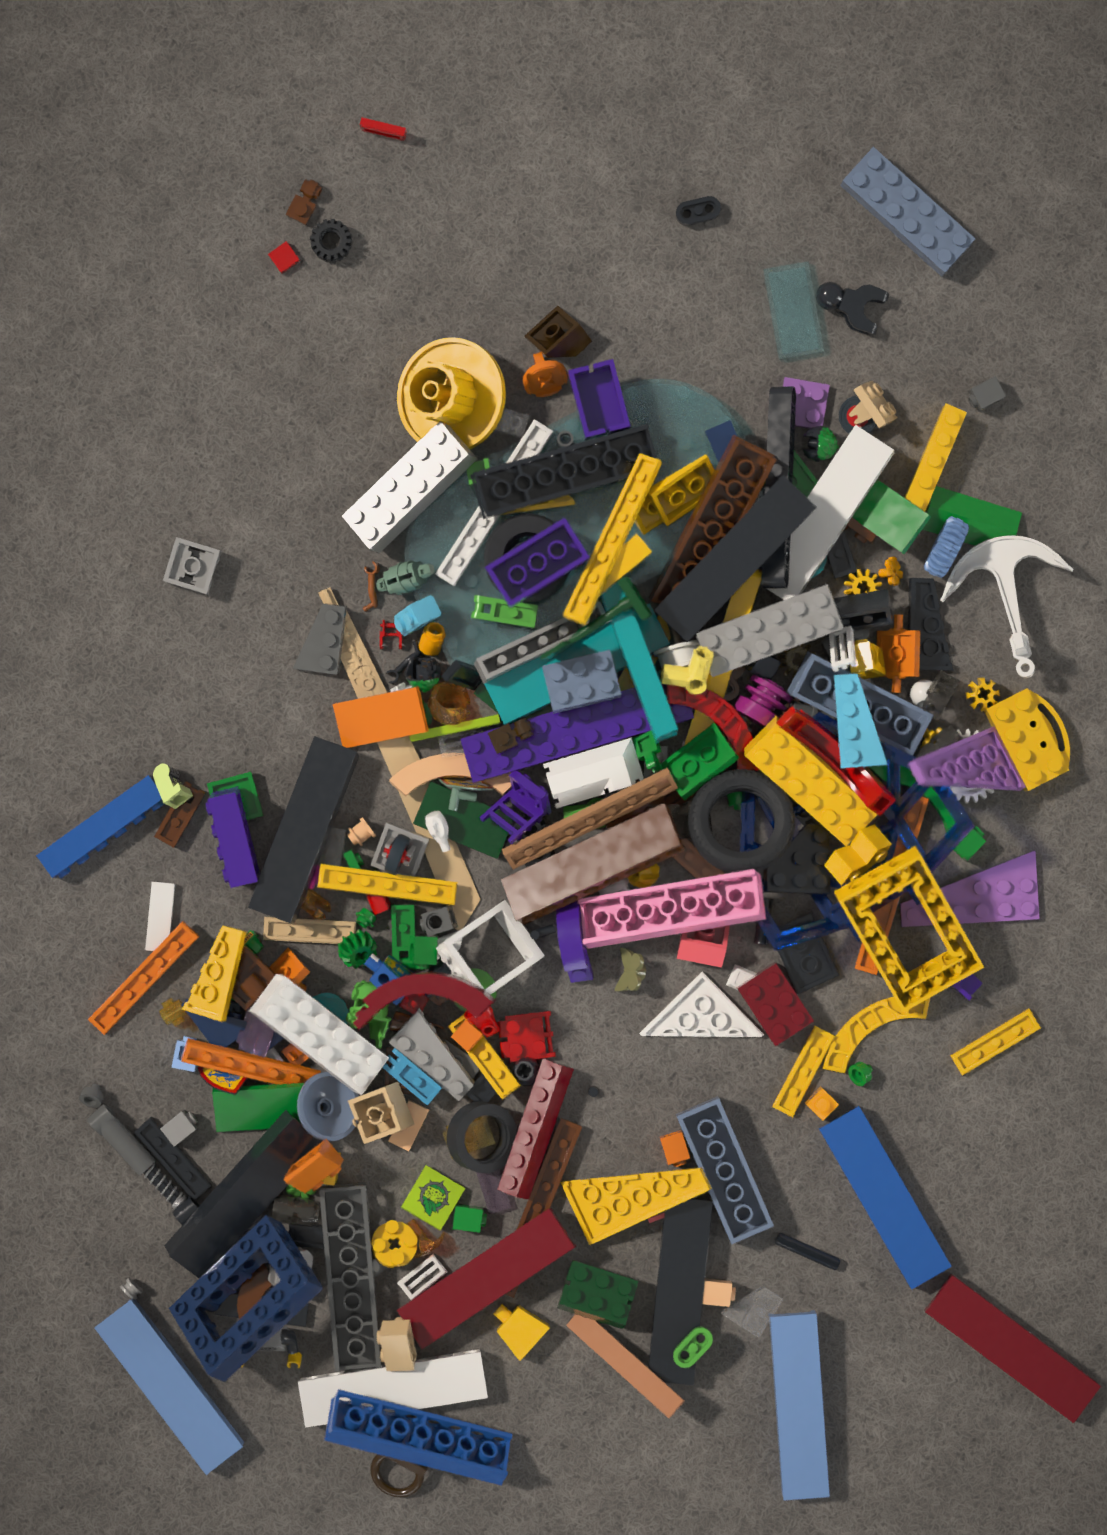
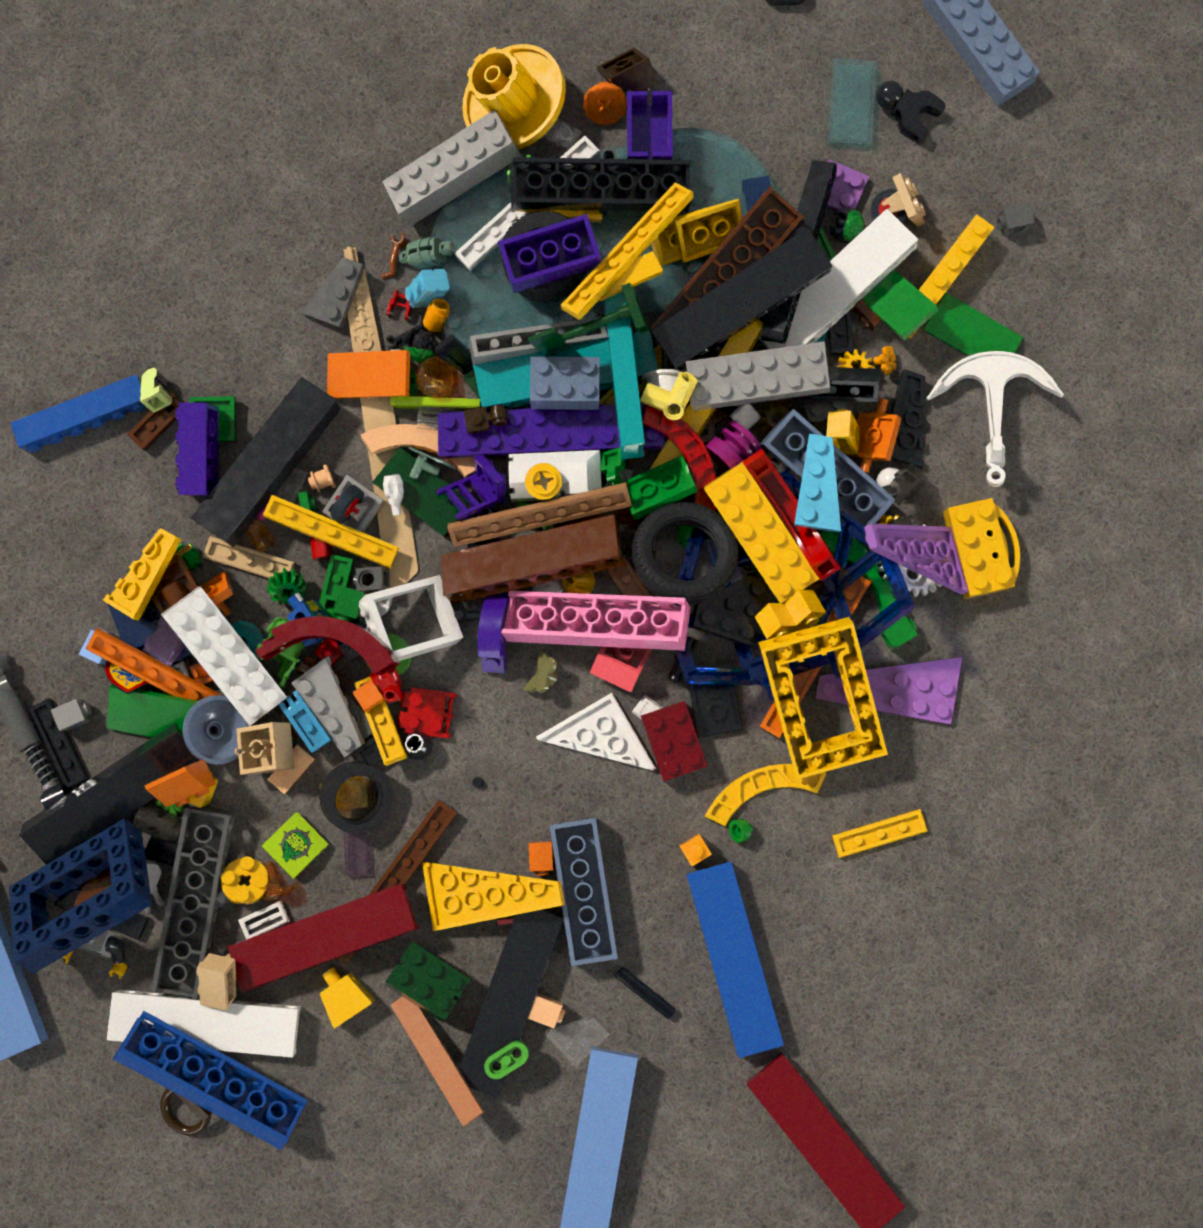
camera: 20 degrees right, 5 degrees down
(143, 977) = (79, 564): orange tile -> none
(159, 914) = (112, 512): white tile -> none
(172, 1012) = (94, 603): clear yellow gear -> none
(182, 562) = (227, 188): light grey brick -> none
(365, 918) = (304, 561): green plate -> none
(469, 1218) = (323, 874): green brick -> none
(519, 615) = (511, 303): bright green plate -> none
(535, 1129) = (410, 803): brick -> none
(588, 775) = (549, 472): none -> yellow gear
(803, 1071) = (685, 814): yellow tile -> none
(851, 648) = (832, 412): white tile -> none
(946, 547) = (945, 346): medium blue gear -> none
(967, 986) = (864, 771): dark purple panel -> none
(975, 691) = (948, 488): yellow piece -> none

